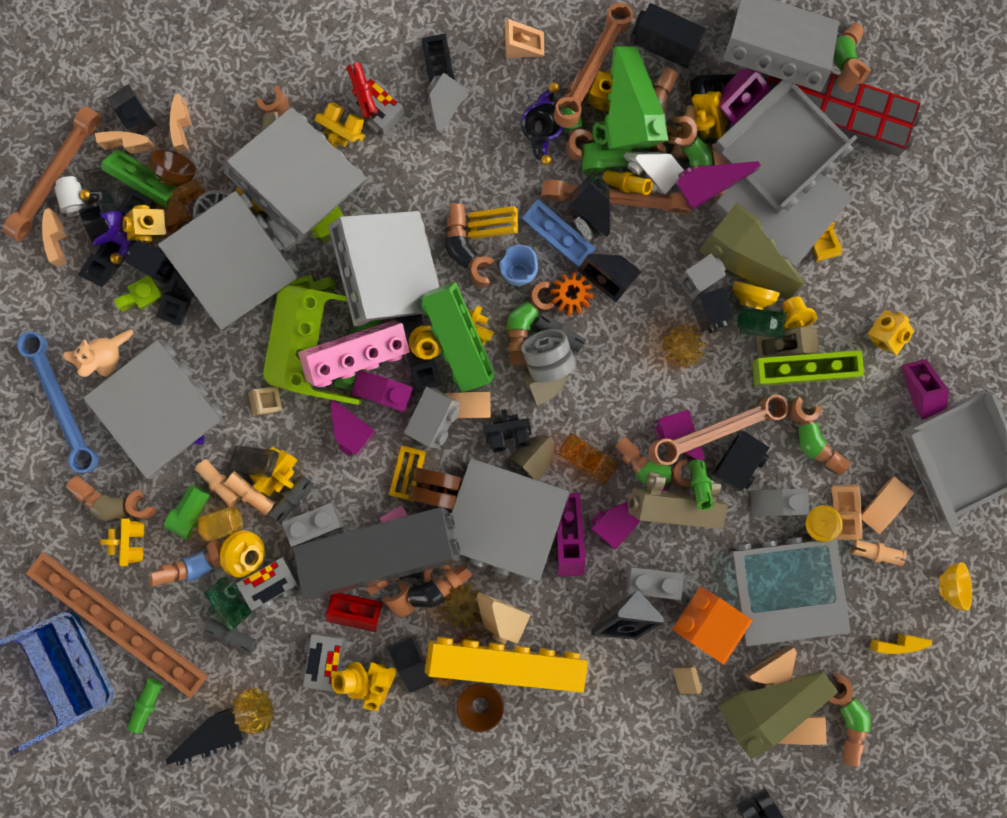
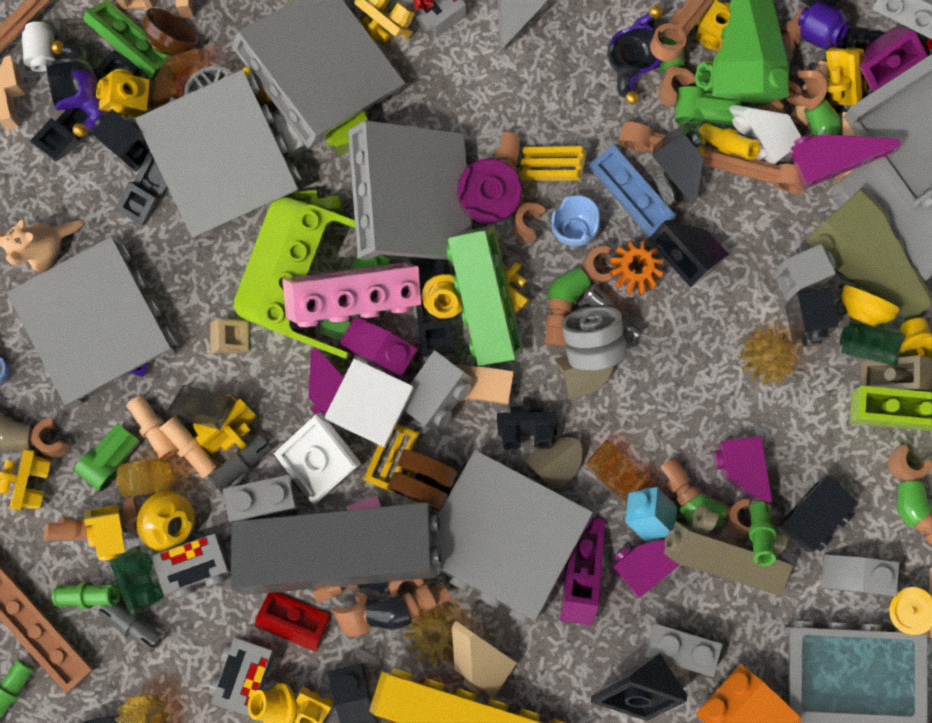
camera: 15 degrees right, 5 degrees down
(142, 292) = (103, 178): lime plate -> none
(191, 621) = (86, 595): none -> bright green pin
(196, 571) = (105, 531): none -> yellow brick
(350, 485) = (317, 458): none -> white tile
(383, 436) = (369, 403): none -> white tile
(447, 253) = (489, 191): none -> magenta tile
(613, 483) = (650, 513): none -> medium azure brick
(686, 77) = (823, 25): none -> dark purple head
(719, 430) = (796, 468): nougat piece -> none

